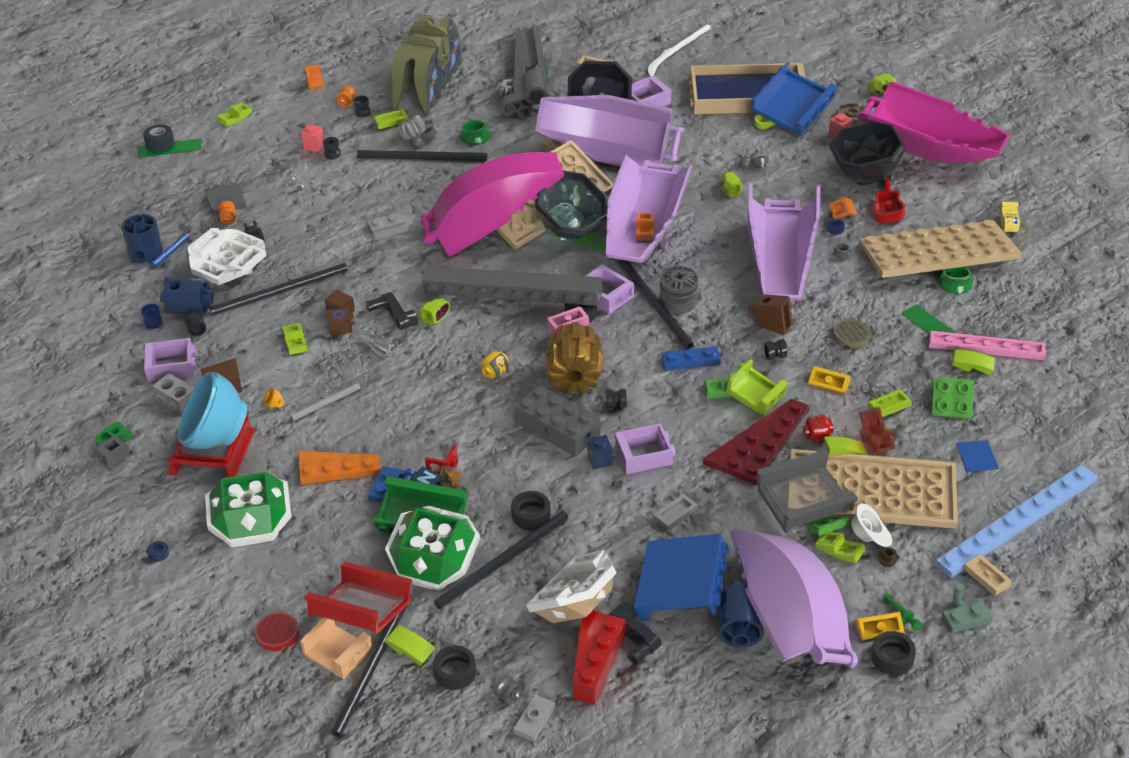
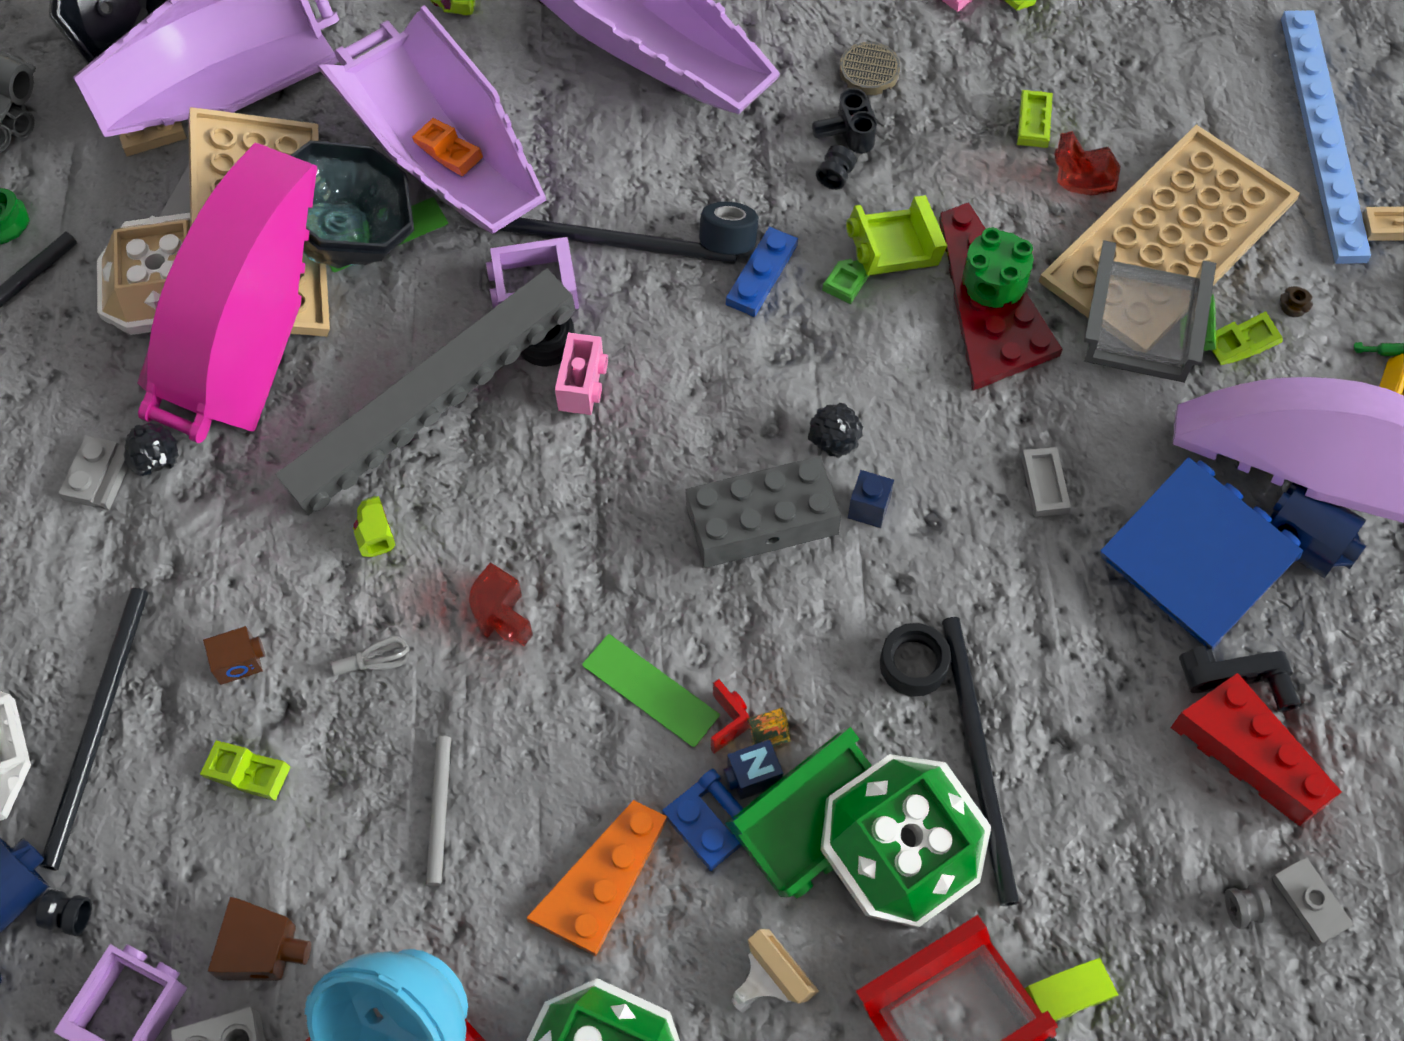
camera: 55 degrees left, 20 degrees up
(273, 398) = (368, 889): light orange tile -> none
(336, 539) = (772, 974): none -> tan piece
(340, 321) = (272, 677): reddish brown brick -> none
(388, 301) = (349, 584): black beam -> none
(408, 229) = (149, 448): none -> black piece
(431, 363) = (492, 604): none -> clear red brick
(439, 434) = (651, 690): none -> bright green sticker
(456, 681) = (1177, 933): black tyre -> none
(494, 364) = (572, 520): yellow head -> none
(574, 358) = (674, 410): pearl gold wheel -> none
(575, 588) = (1113, 696): white piece -> none
(616, 398) = (773, 413): black wheel -> none
(623, 418) = (835, 429): none -> black piece
(643, 436) = (905, 472): lavender window -> none
(679, 289) = (627, 192): dark grey wheel -> none
(697, 330) = (728, 228): none -> black wheel
(770, 425) = (997, 268): none -> green brick
(773, 313) = (769, 122): reddish brown torso -> none
(809, 342) = (854, 121): none -> black beam
(817, 428) = (1027, 218): red head -> none
(829, 380) = (935, 150): yellow slope -> none
(843, 445) = (1079, 217): lime slope -> none
(869, 527) = (1244, 287): white piece -> none
(952, 397) = (1078, 48): bright green bracket -> none
(977, 455) = (1185, 96): blue sticker -> none

